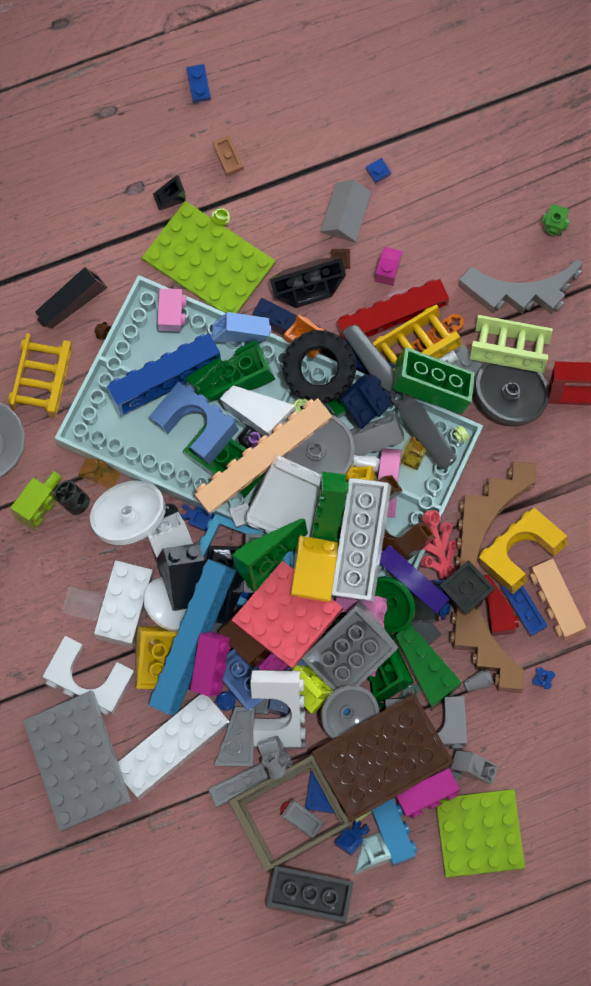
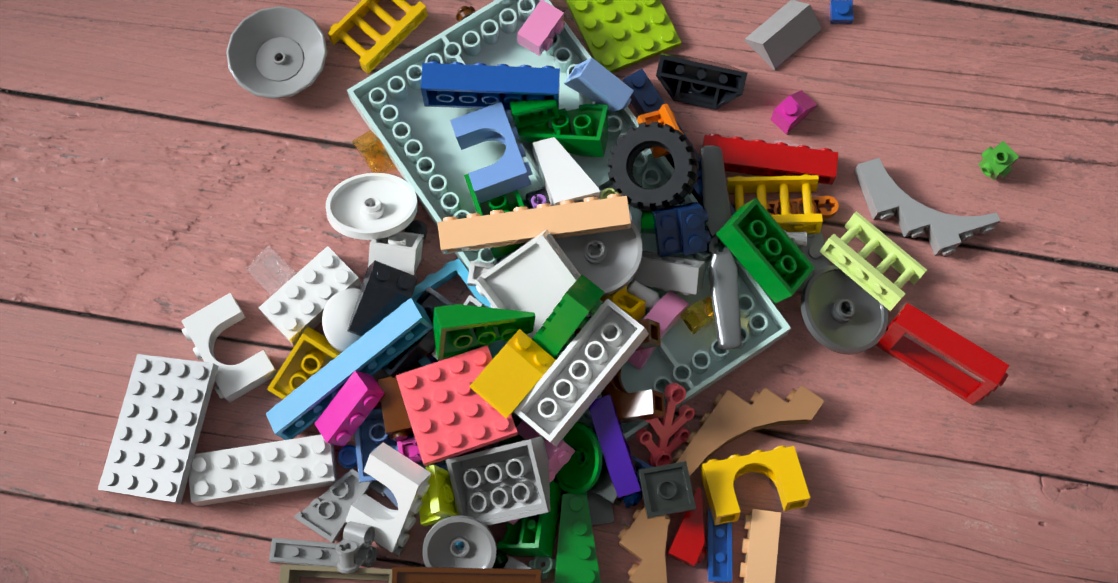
camera: 30 degrees right, 0 degrees up
(35, 501) = (289, 142): lime brick -> none
(72, 497) = (327, 159): pearl dark grey wheel -> none
(198, 518) = (436, 254): blue plate -> none
(344, 254) = (753, 76): reddish brown plate -> none
(461, 434) = (761, 323): yellowish green plate -> none

